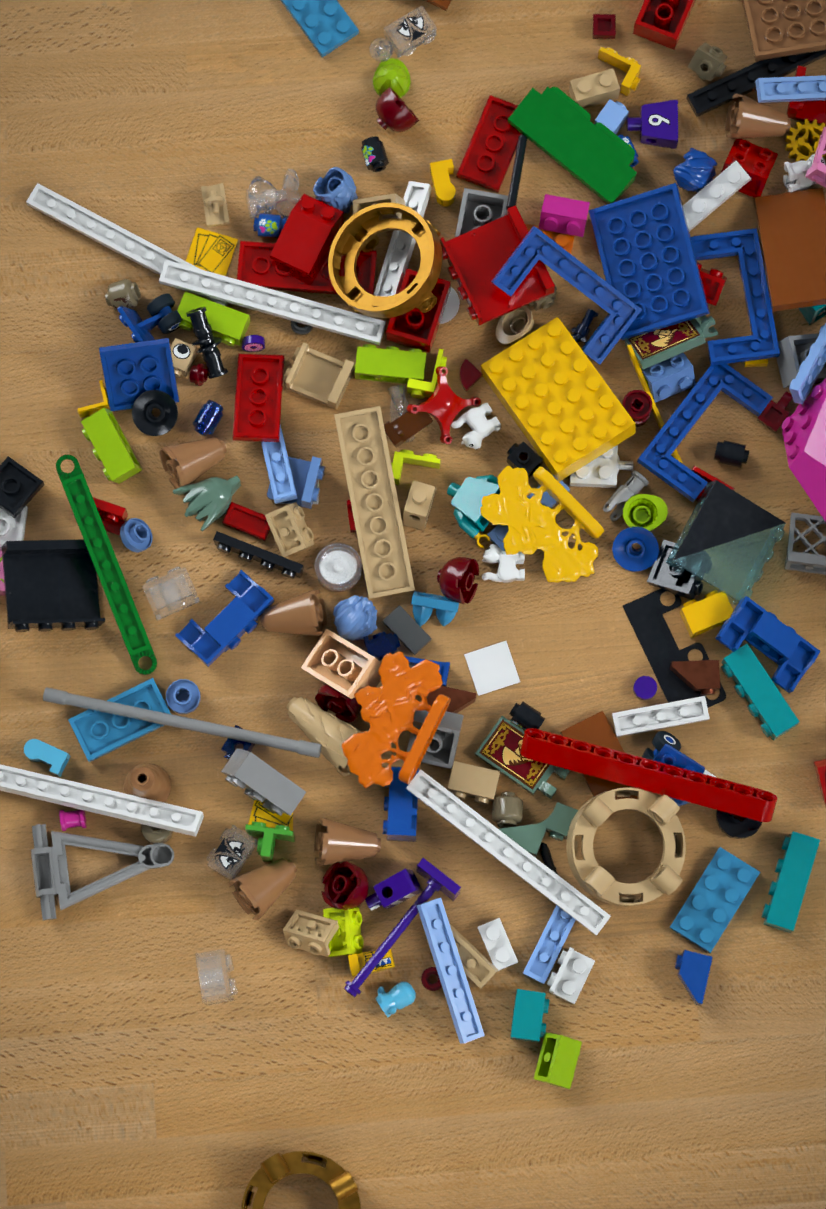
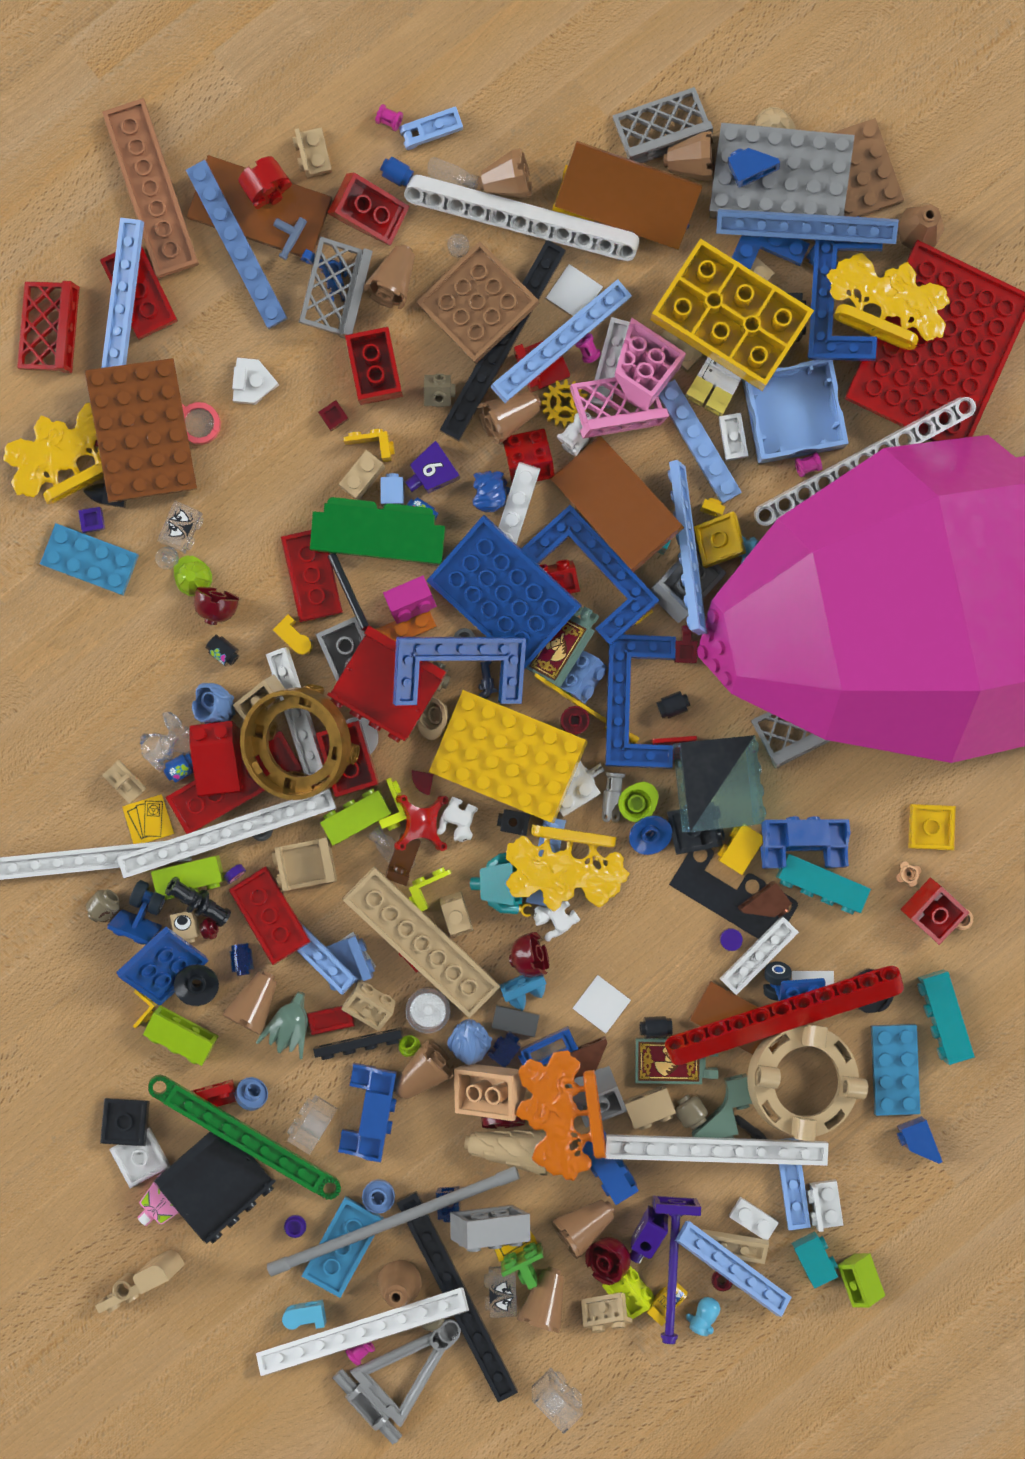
camera: 30 degrees left, 10 degrees up
(92, 675) = (295, 1226): none -> dark purple plate
(187, 846) = (469, 1321): none -> black plate
(299, 586) = (409, 1045): none -> lime plate

